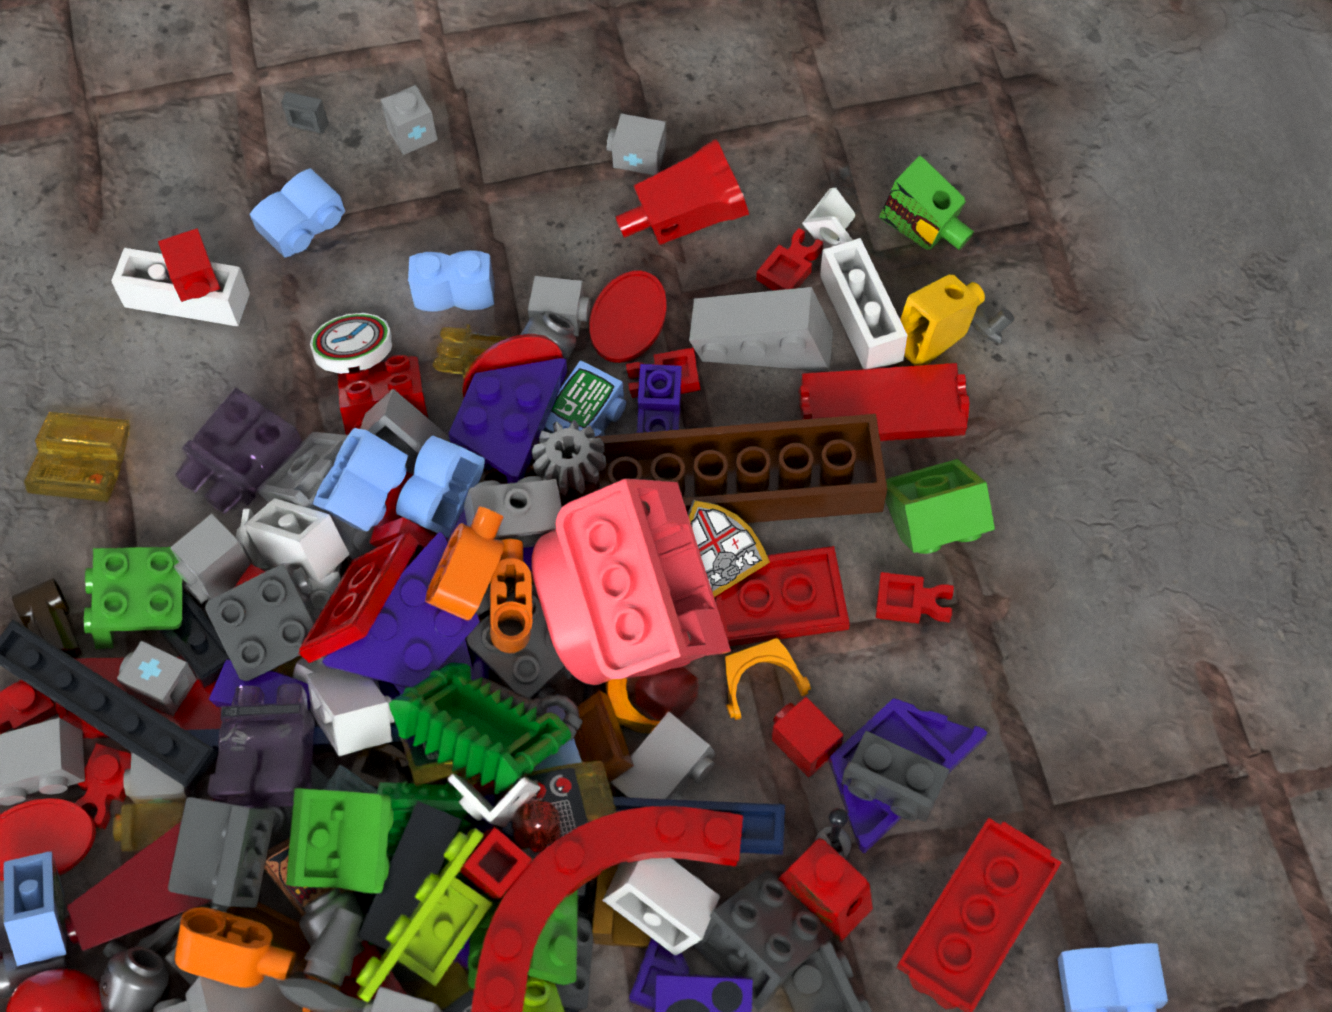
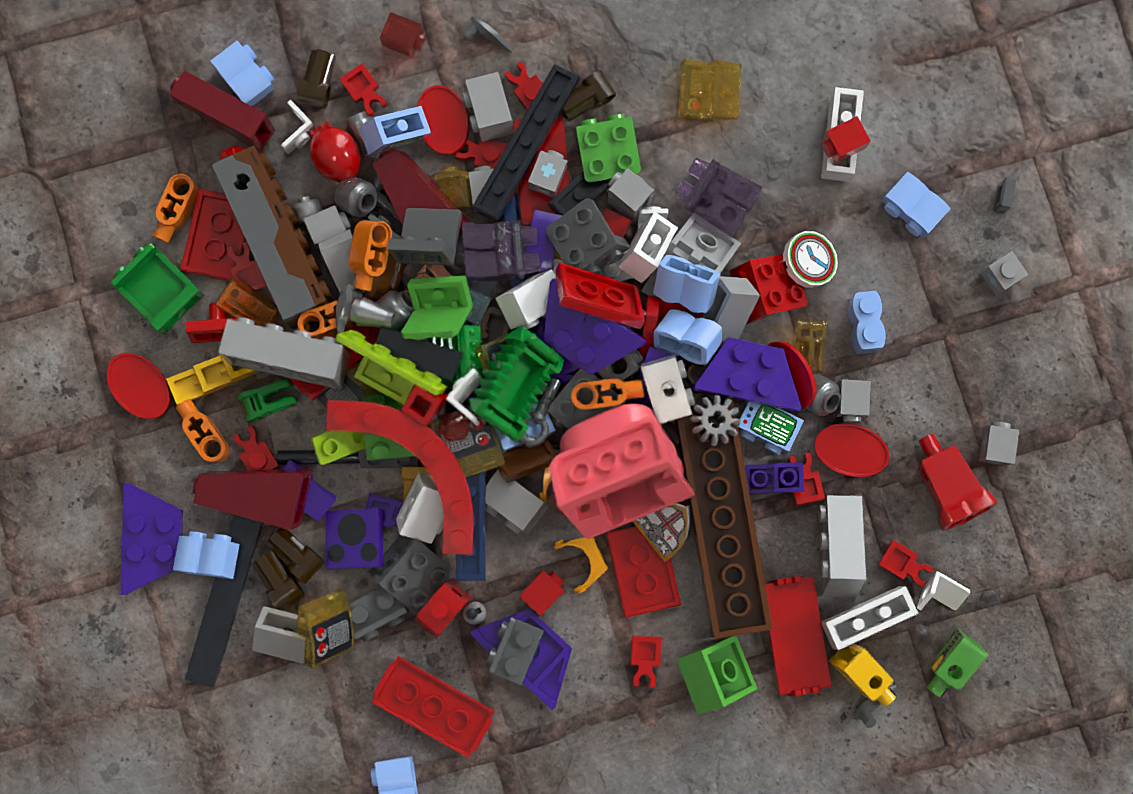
camera: 80 degrees right, 20 degrees up
(467, 566) = (618, 363): orange piece -> none

